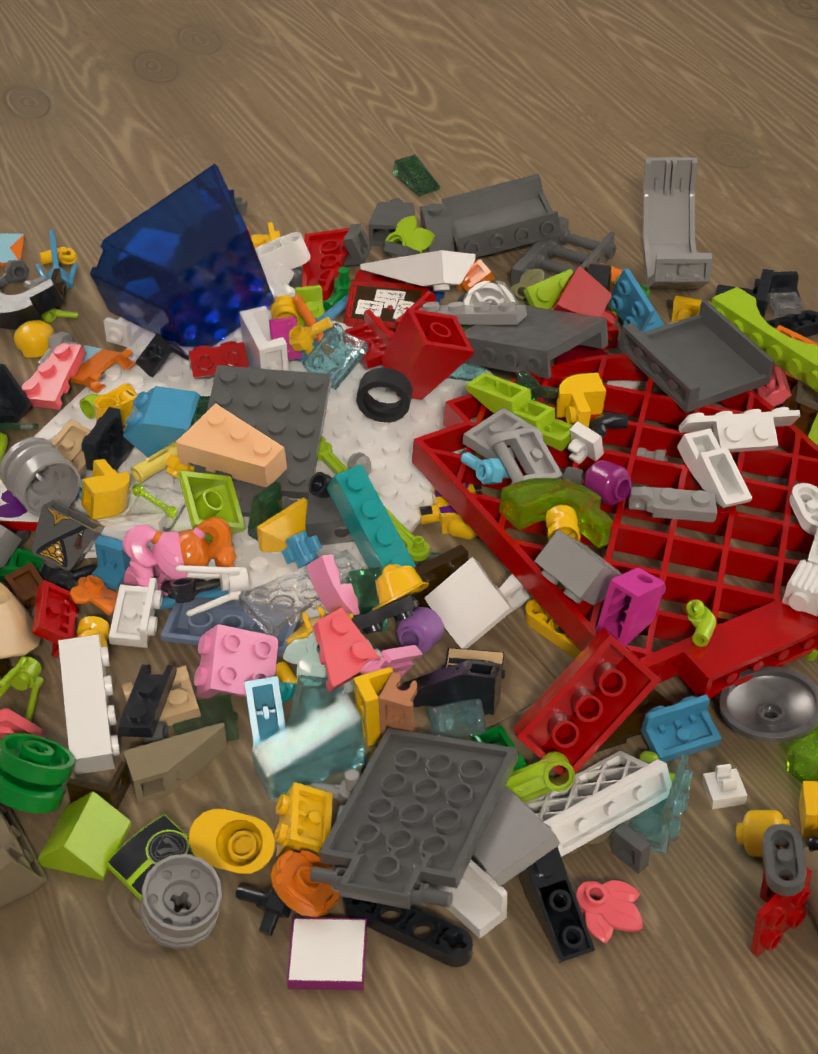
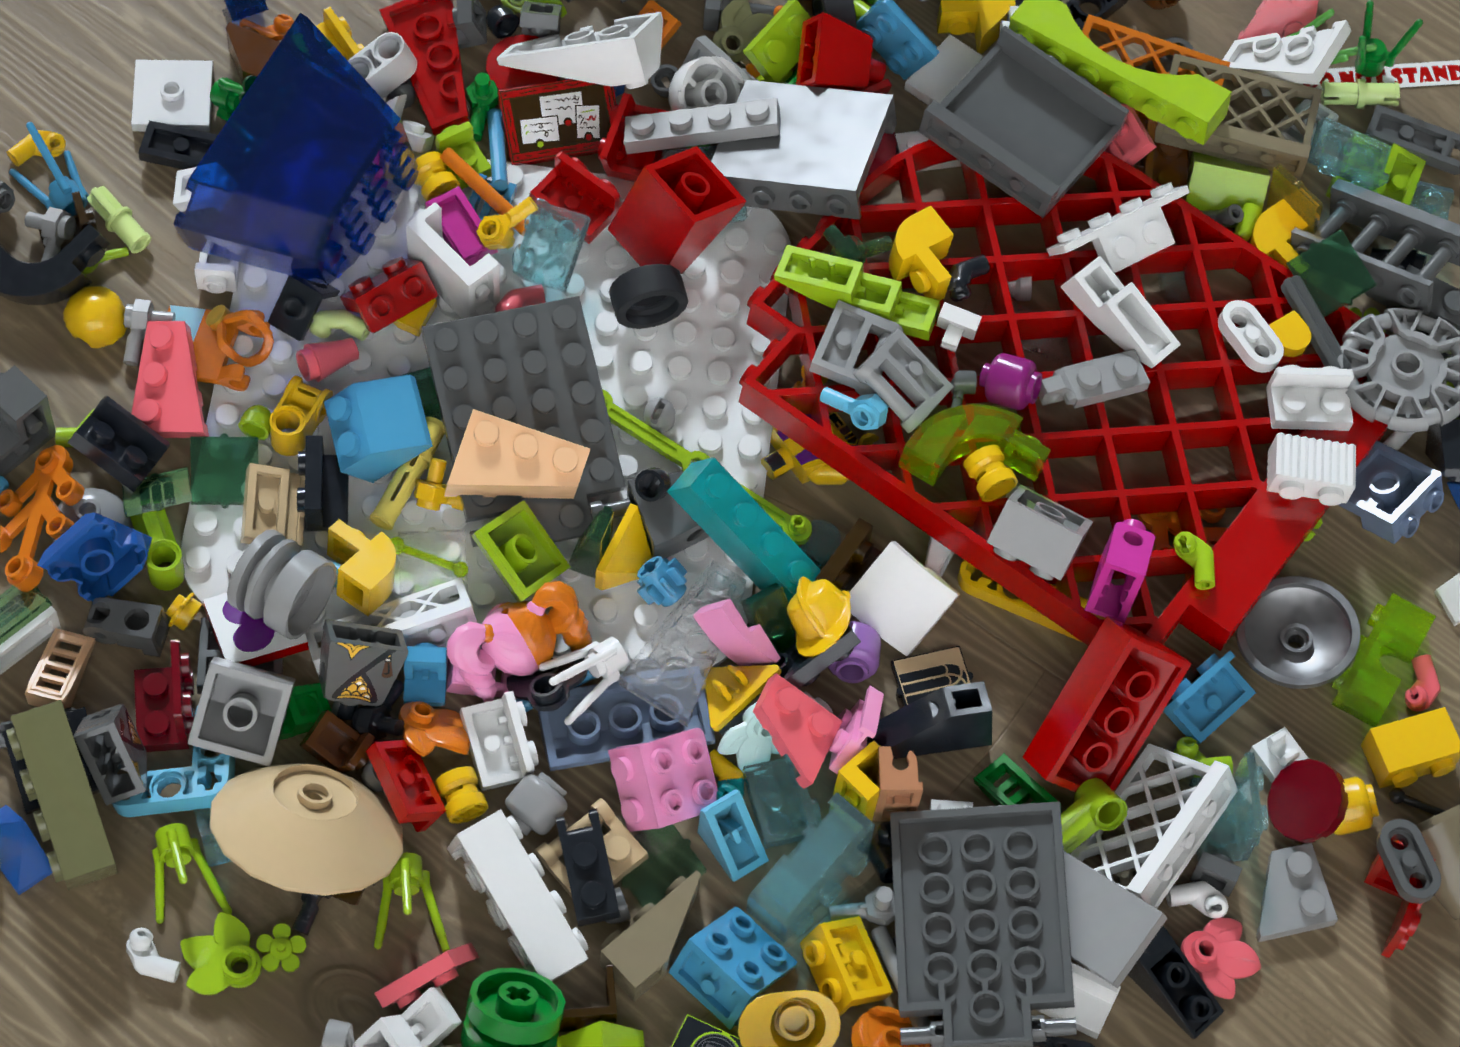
camera: 30 degrees left, 20 degrees up
(52, 420) = (220, 468): none -> clear green piece
(82, 298) = (118, 219): none -> yellowish green axle
(122, 351) = (221, 316): none -> orange piece
(138, 651) = (536, 803): none -> light grey head
(151, 379) = (324, 358): none -> coral cone
(182, 370) = (341, 319): none -> yellowish green arm
(218, 786) = (730, 965): none -> dark azure bracket
(382, 256) = (502, 21): none -> black hinge
(458, 719) = (957, 769): clear light blue bracket -> none
(612, 861) = (1200, 896): none -> white arm
(692, 886) = (1294, 895): none -> light grey wing
(729, 817) = (1307, 801): none -> dark red tile

